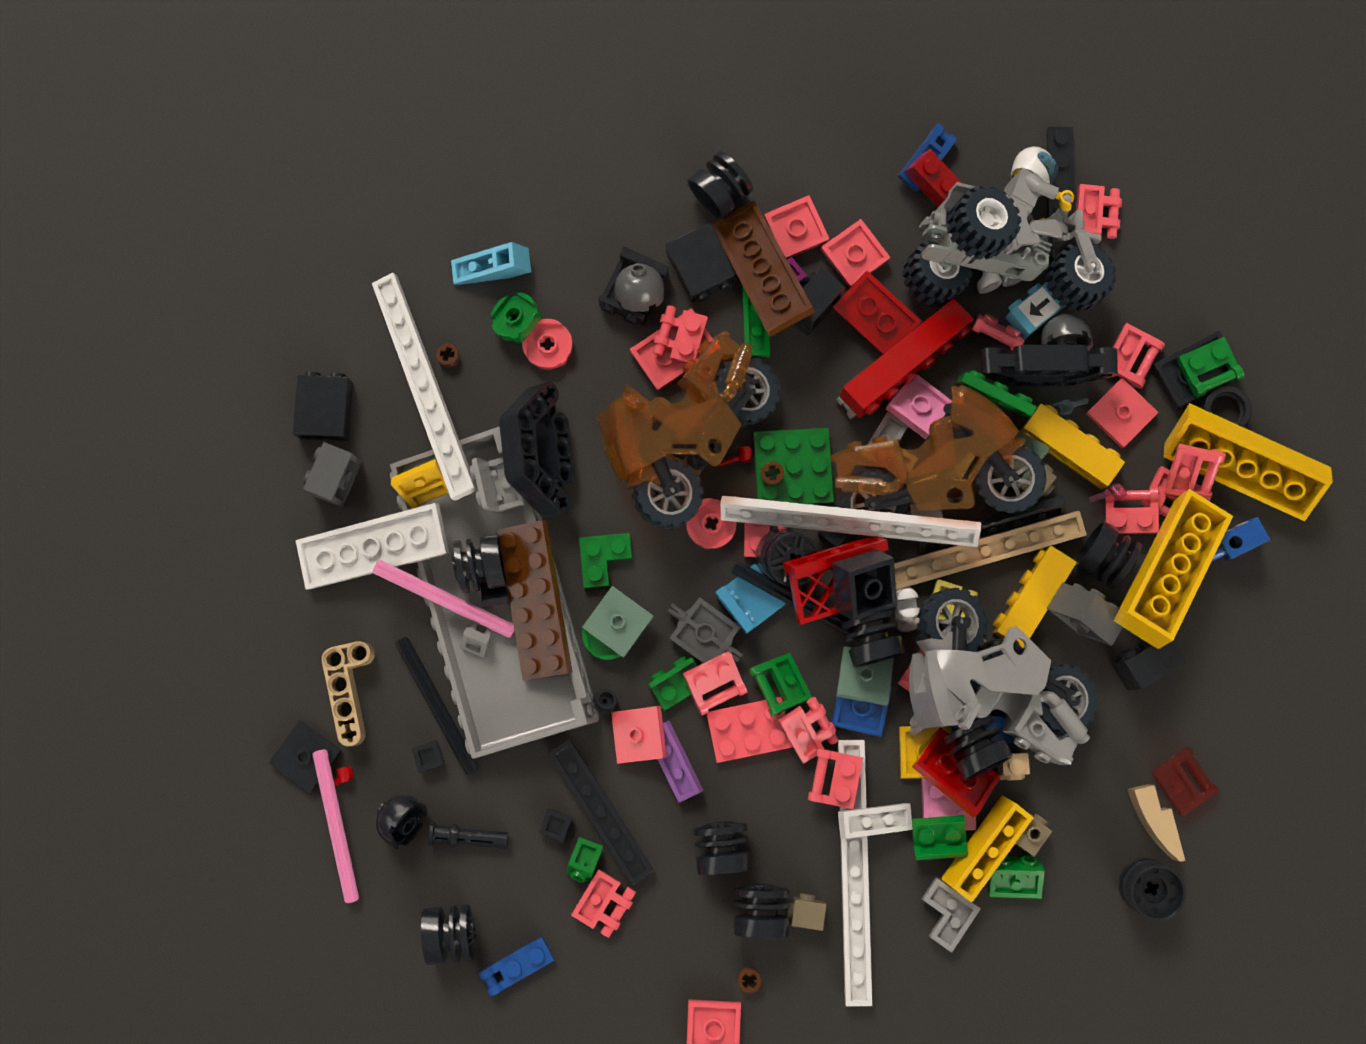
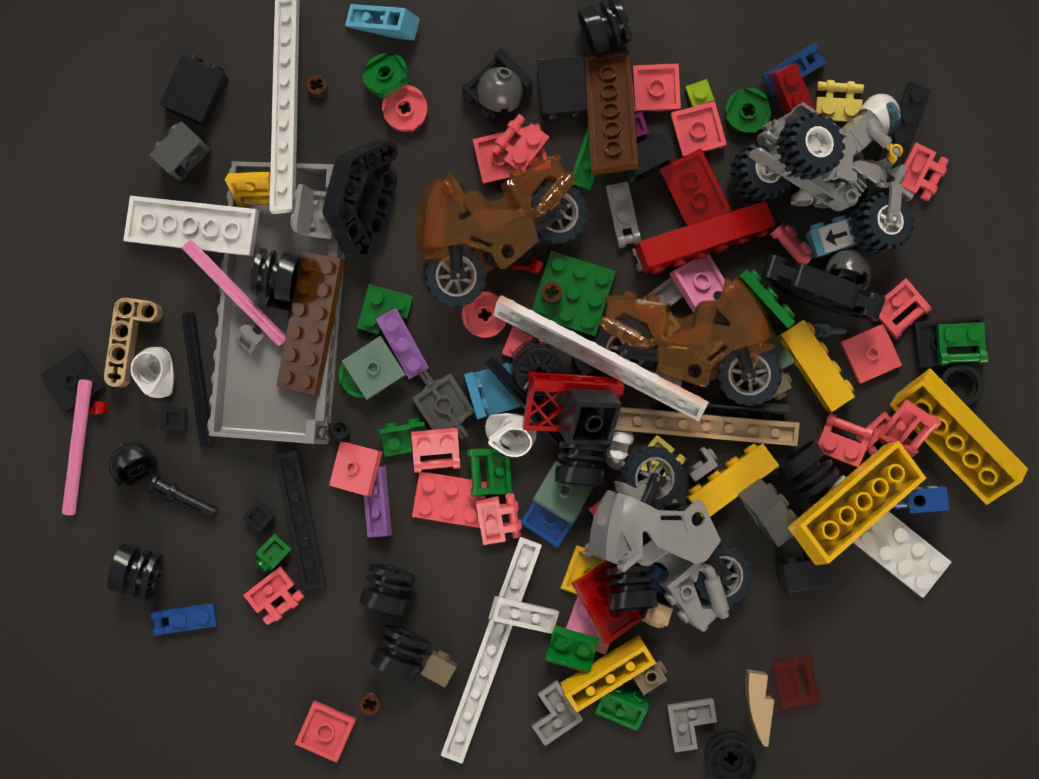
camera: 20 degrees right, 5 degrees up
(389, 714) = (155, 371): none -> white helmet
(637, 585) = (402, 343): none -> medium lavender plate
(785, 634) = (508, 430): none -> white helmet
(812, 367) = (623, 213): none -> light grey plate
(841, 217) = (699, 93): none -> lime plate
(844, 780) = (510, 573): coral plate -> none
(908, 207) = (743, 98): none -> green plate
(994, 176) = (839, 109): none -> light yellow plate
(998, 596) = (700, 469): none -> light grey bracket
(1084, 867) = (684, 717): none -> light grey plate
(1116, 490) = (837, 418): clear pink hand -> none
(1239, 604) = (902, 552): none -> white plate

